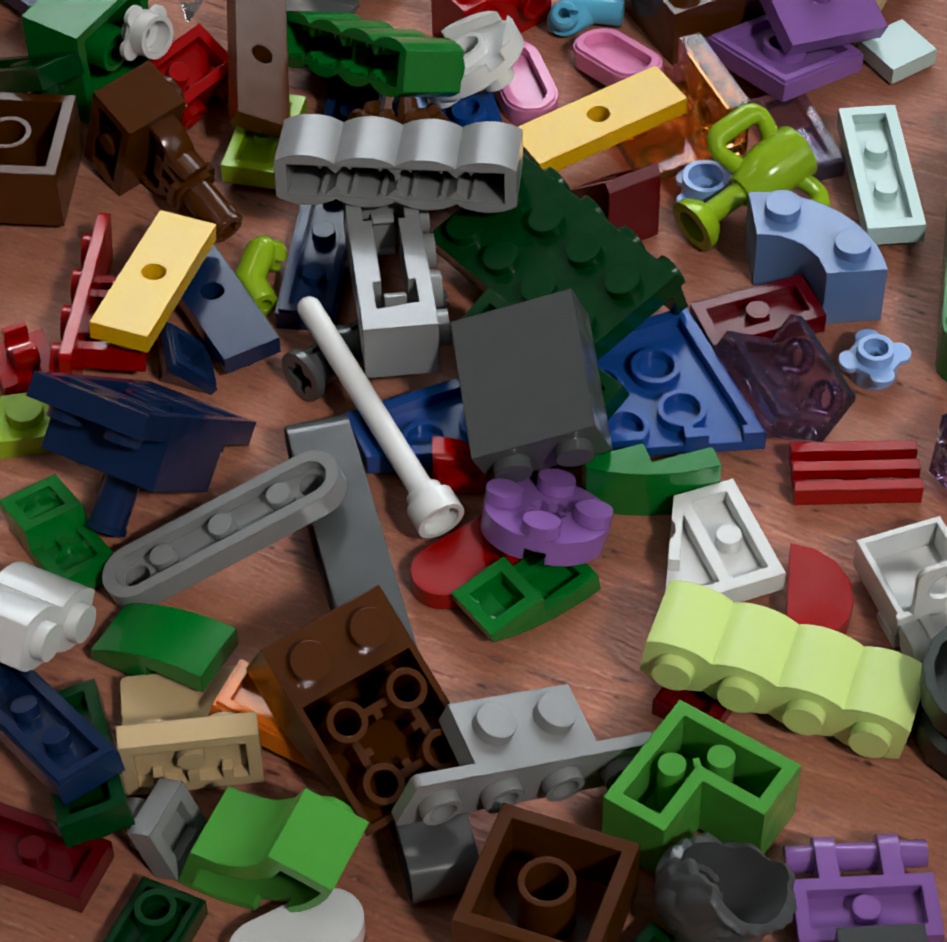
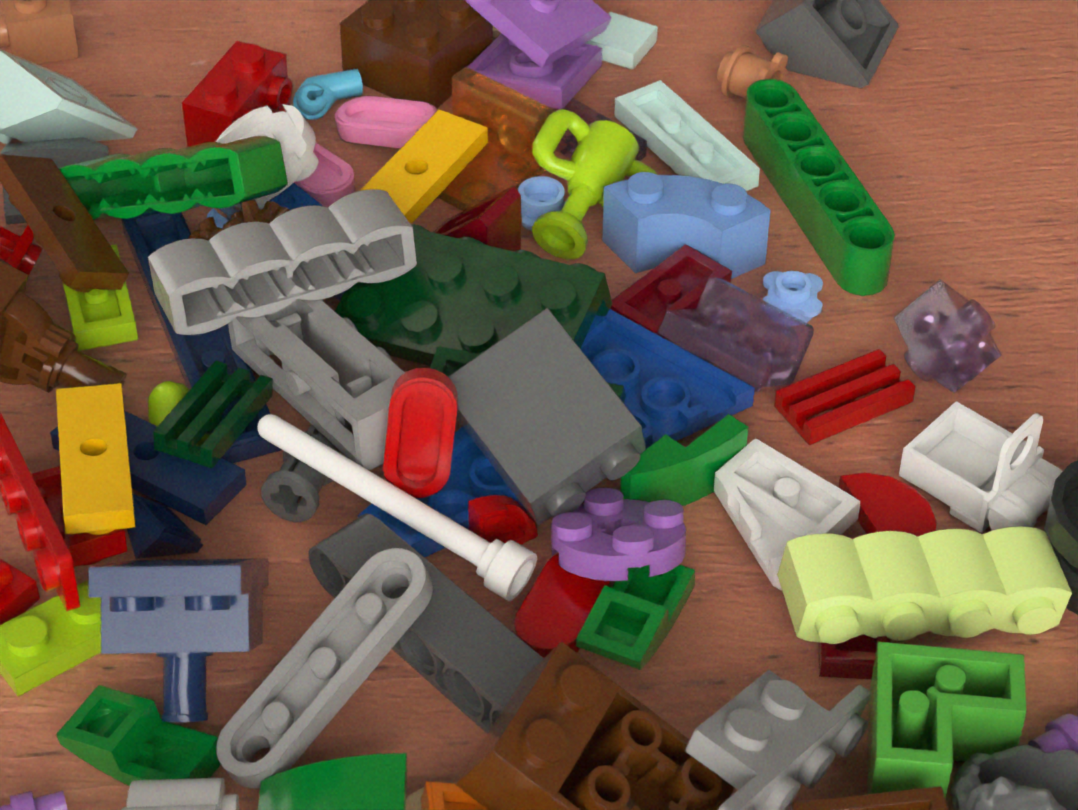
camera: 30 degrees left, 5 degrees down
(276, 273) = (203, 409): none -> dark green tile
(416, 360) = (420, 432): none -> red tile

